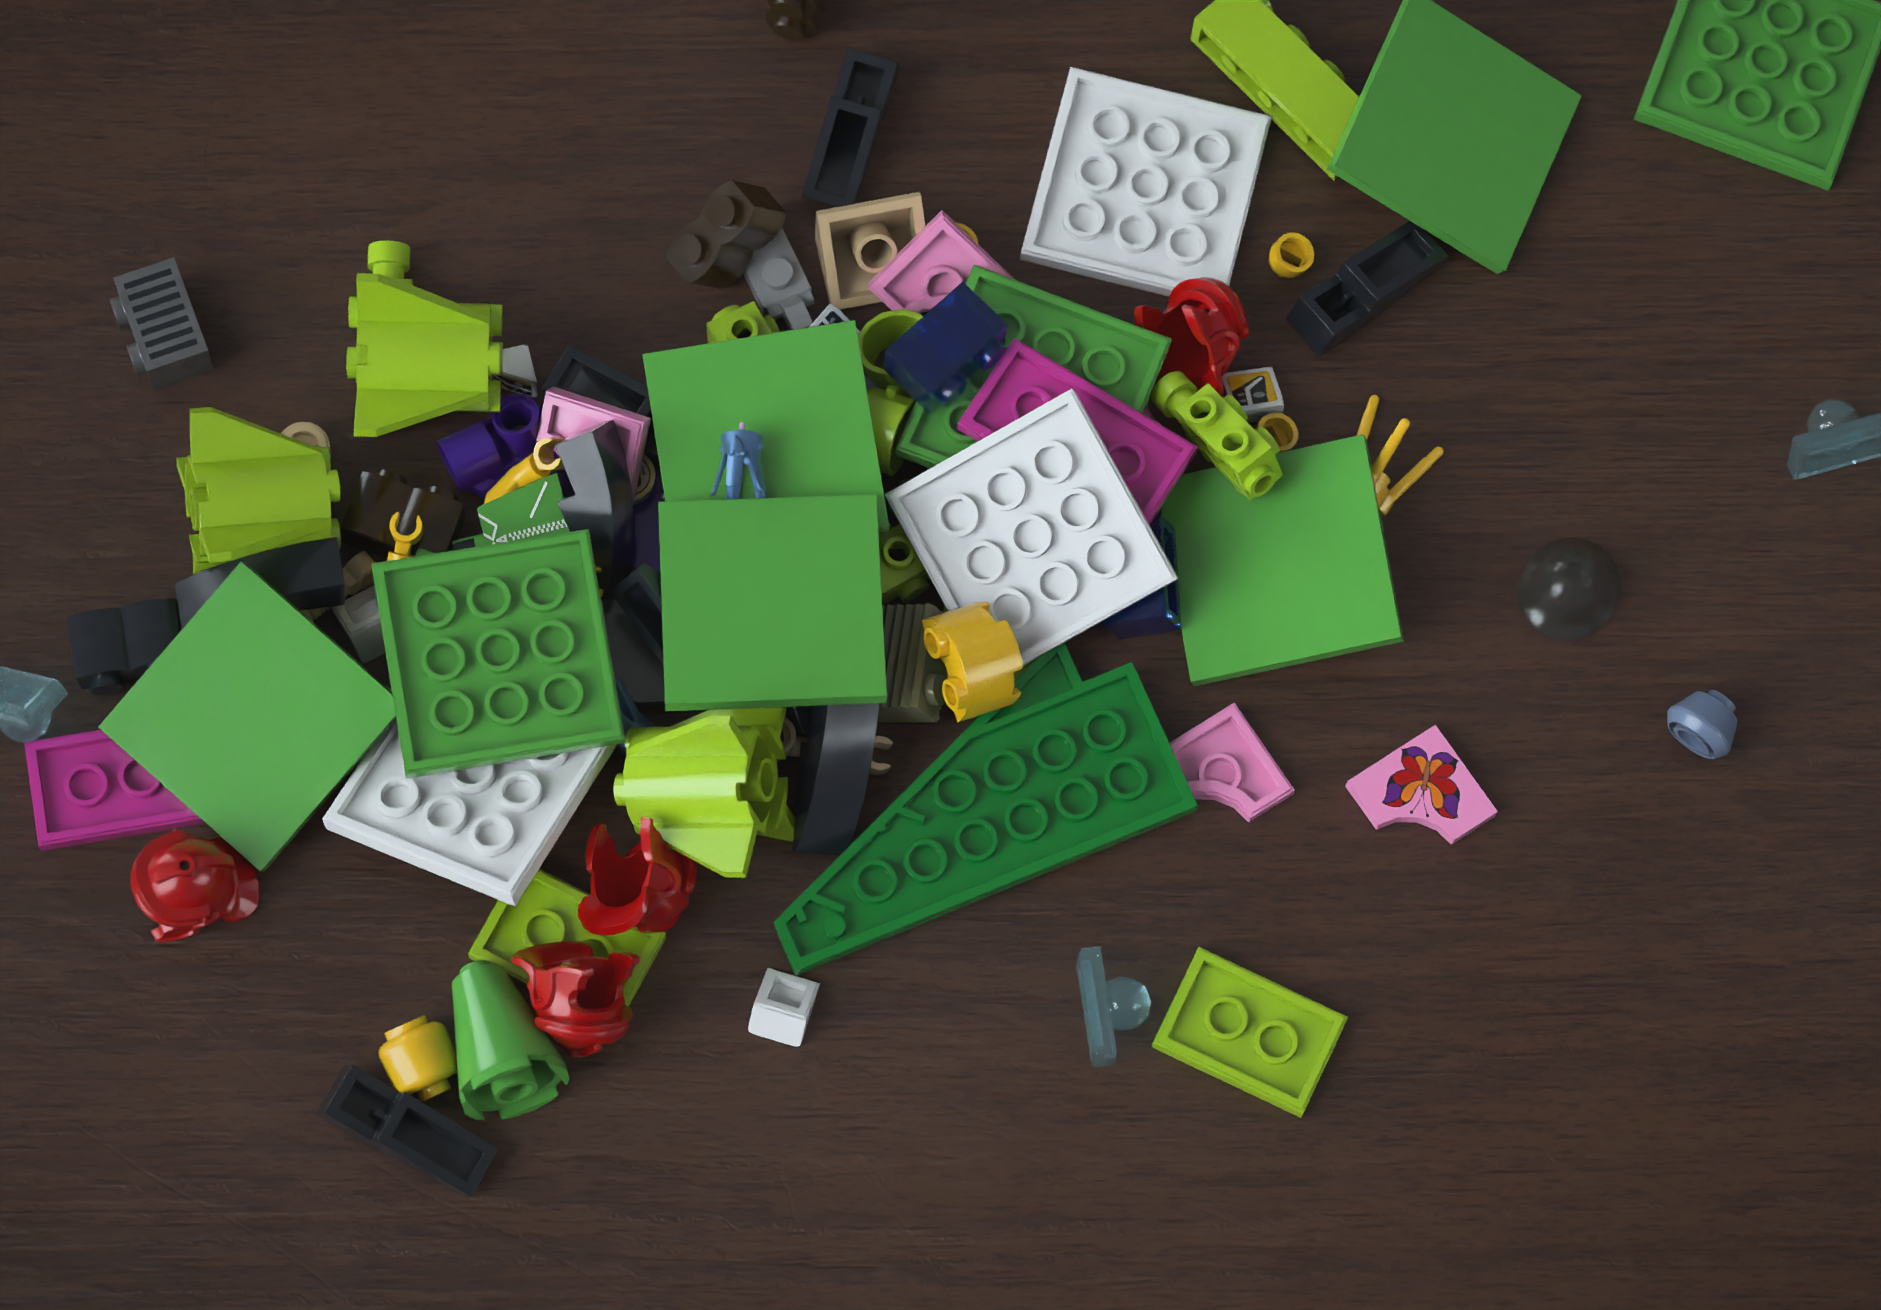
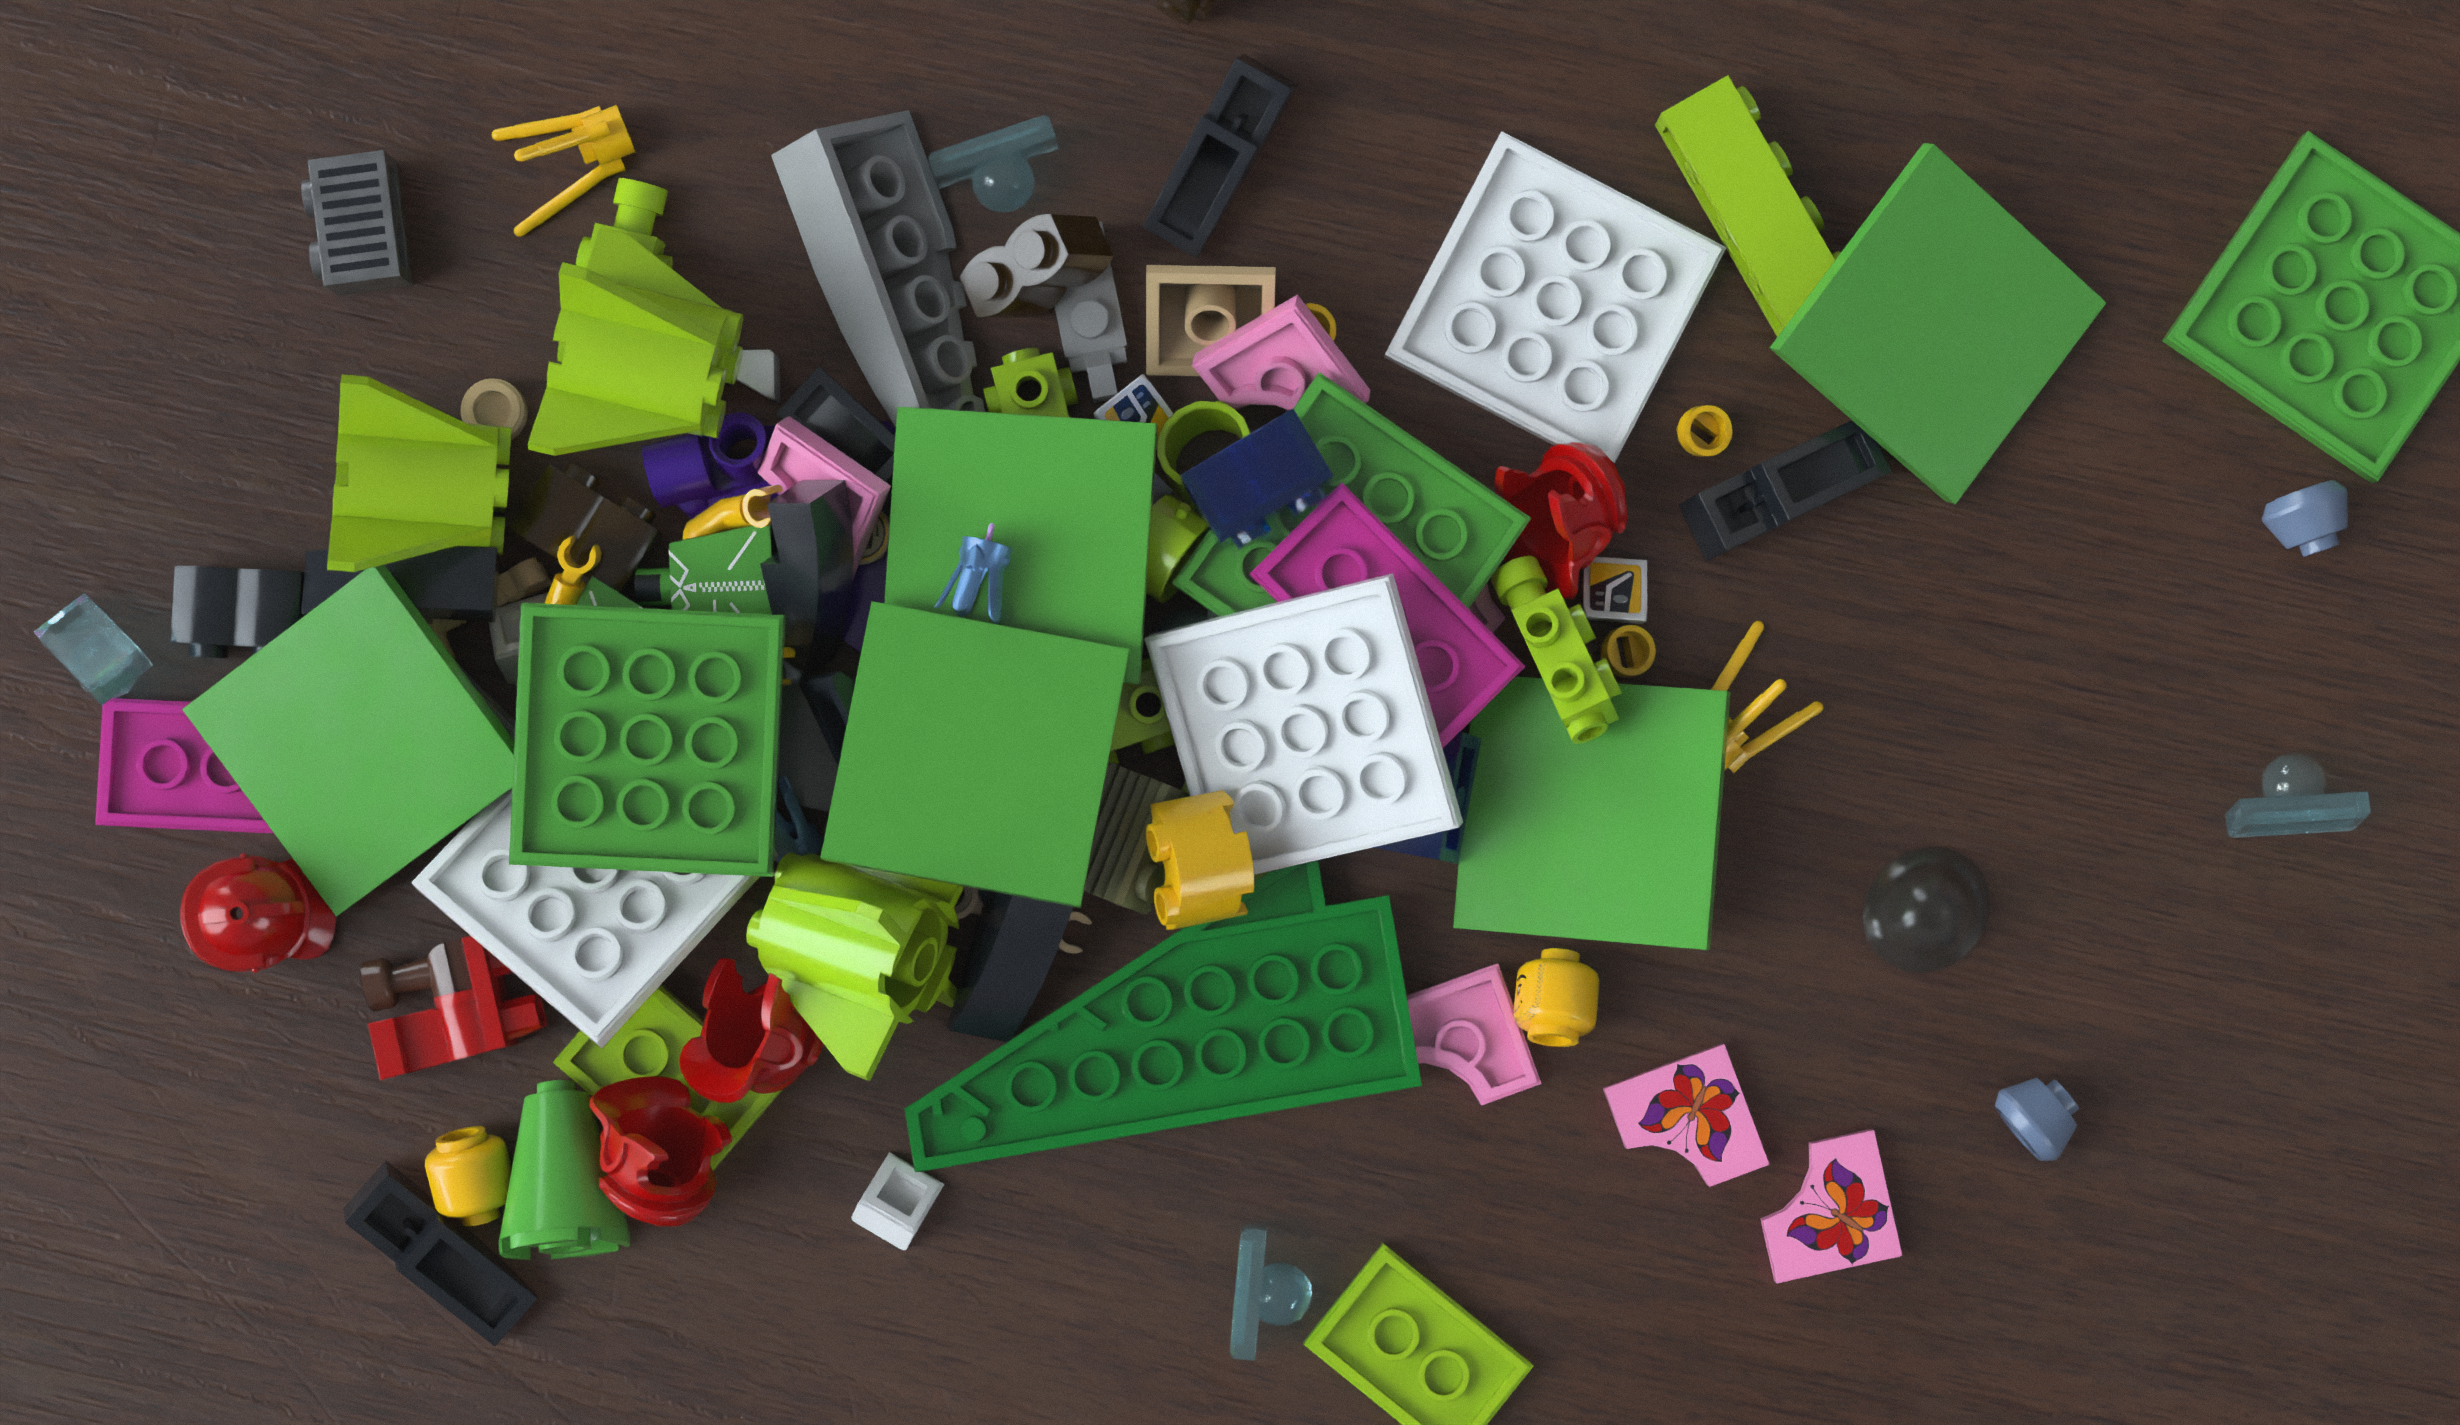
camera: 20 degrees right, 15 degrees up
(343, 219) = (599, 136): none -> yellow plant
(388, 928) = (469, 1014): none -> red hips
(593, 255) = (884, 258): none -> light grey wedge
(672, 170) = (997, 163): none -> clear light blue tile
(1289, 716) = (1556, 998): none -> yellow head
(1564, 841) = (1838, 1214): none -> bright pink tile
(1785, 218) = (2309, 517): none -> sand blue cone

